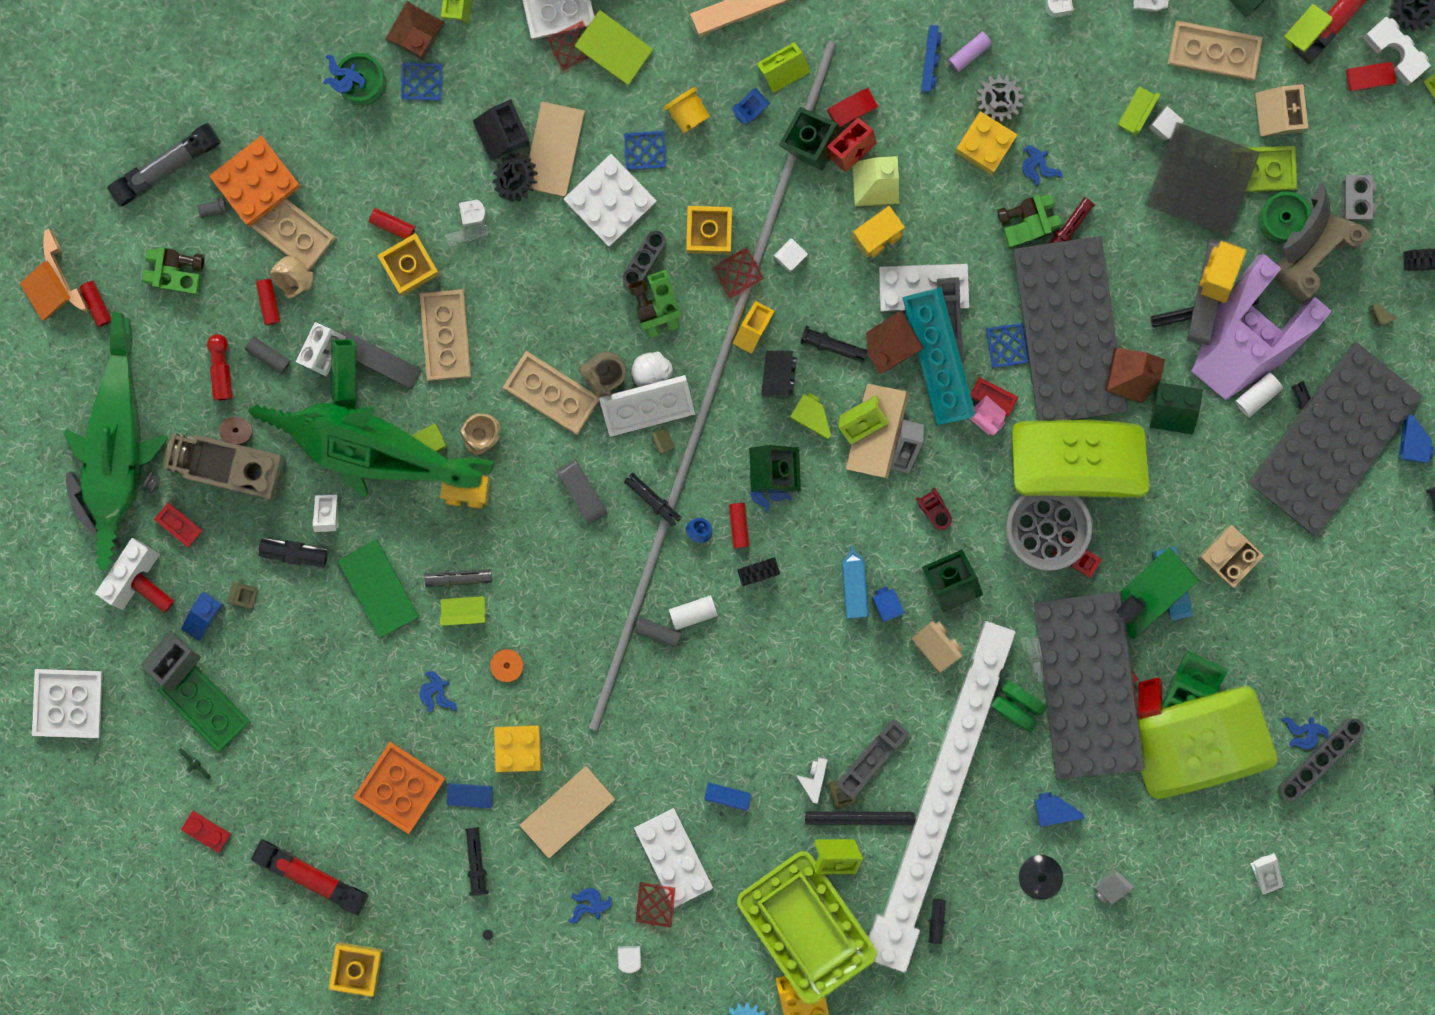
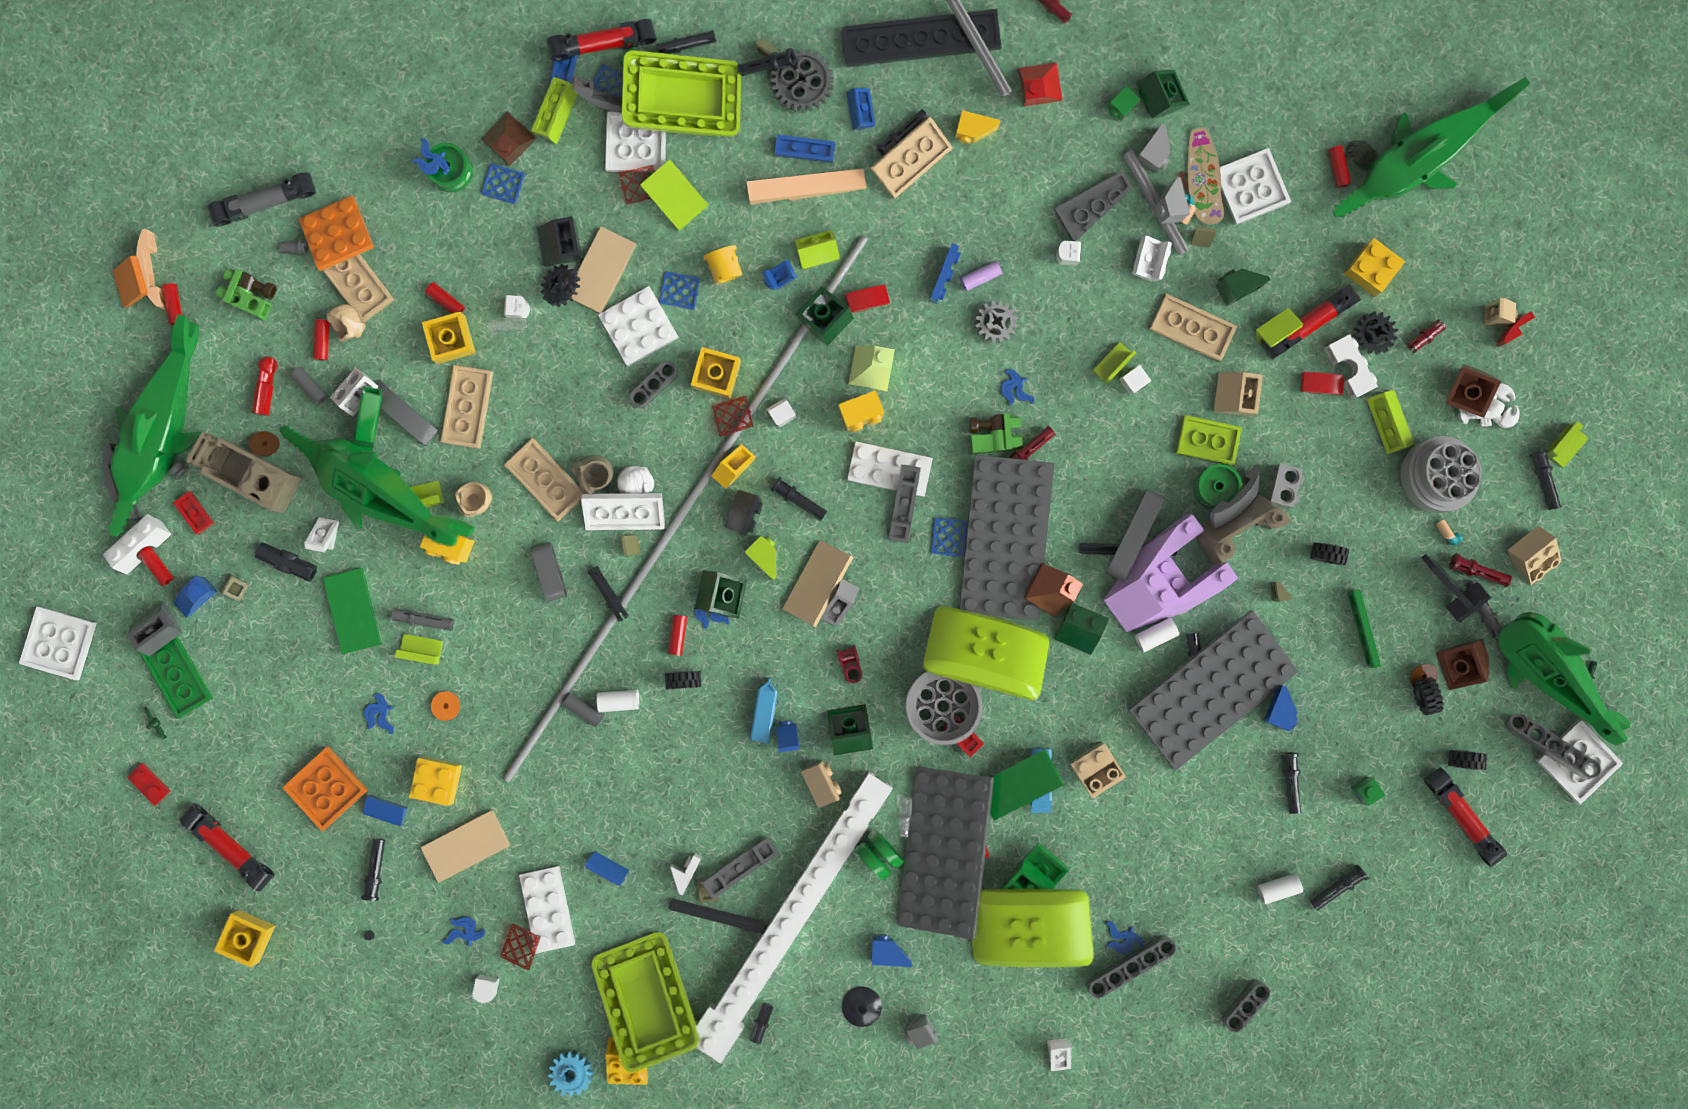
camera: 10 degrees right, 0 degrees up
(658, 310) = (654, 431): bright green hips -> none
(699, 530) = (641, 630): blue hat -> none
(837, 856) = (688, 945): lime panel -> none
(851, 144) = (858, 330): red brick -> none
(862, 420) = (806, 571): lime panel -> none
(892, 342) = (849, 510): copper slope -> none
(940, 356) = (887, 532): teal plate -> none
(986, 143) = (974, 357): yellow brick -> none
(989, 416) = (916, 594): bright pink brick -> none
(1000, 396) = (926, 578): red tile -> none
(1131, 609) = (998, 796): black piece -> none
(1150, 698) = (995, 876): red tile -> none
(1202, 178) = (1154, 435): clear smoke plate -> none
(1224, 268) = (1152, 520): yellow brick -> none

